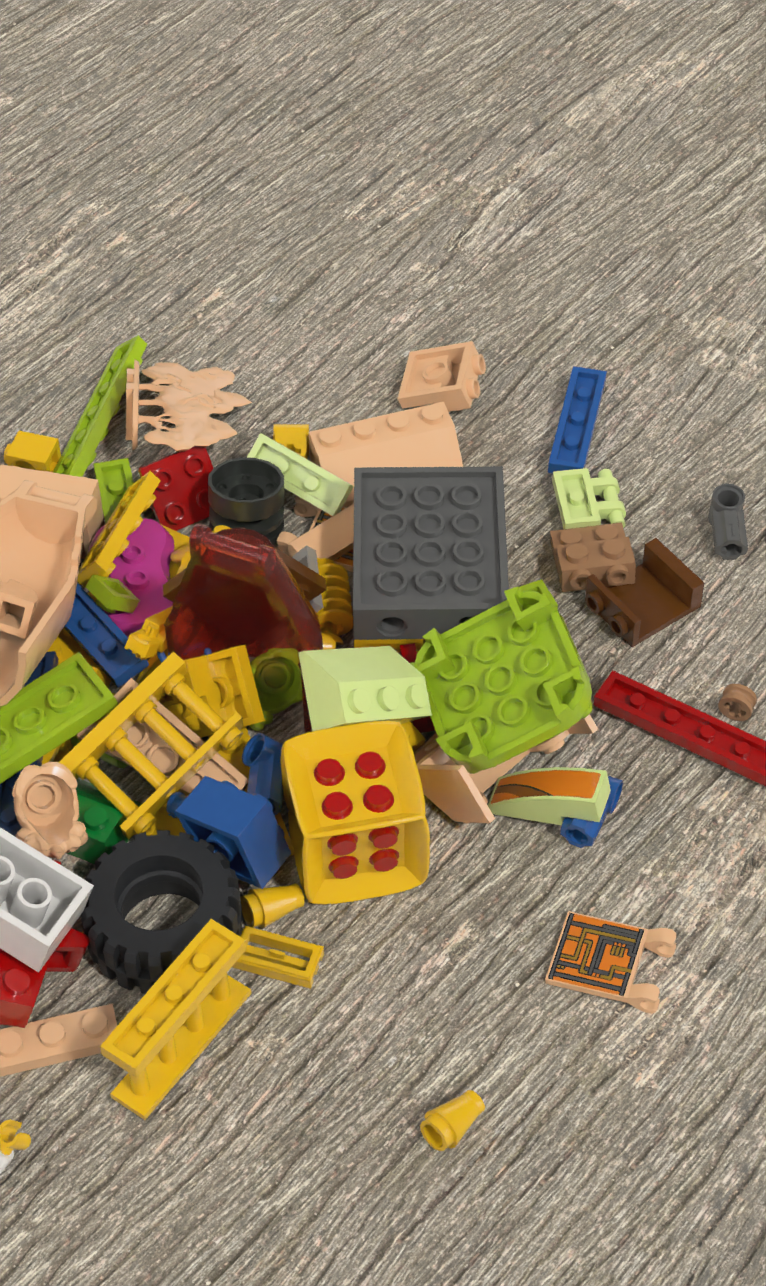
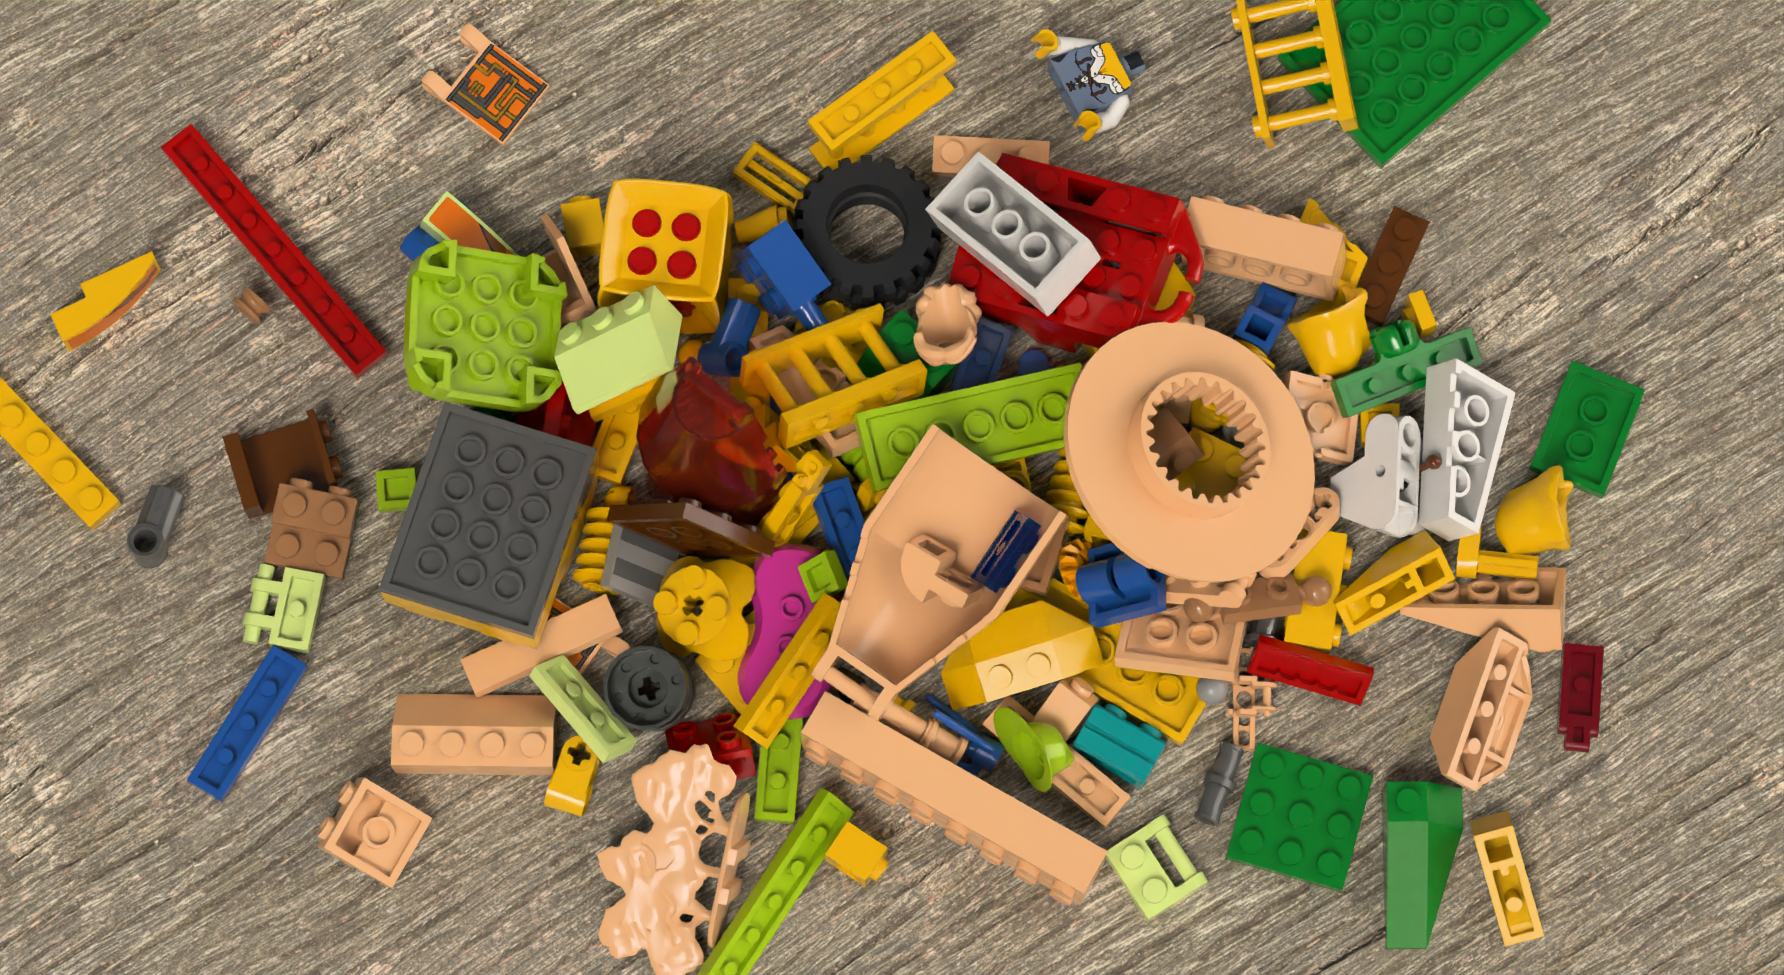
camera: 165 degrees left, 25 degrees up
(454, 849) = (583, 226): none -> yellow brick

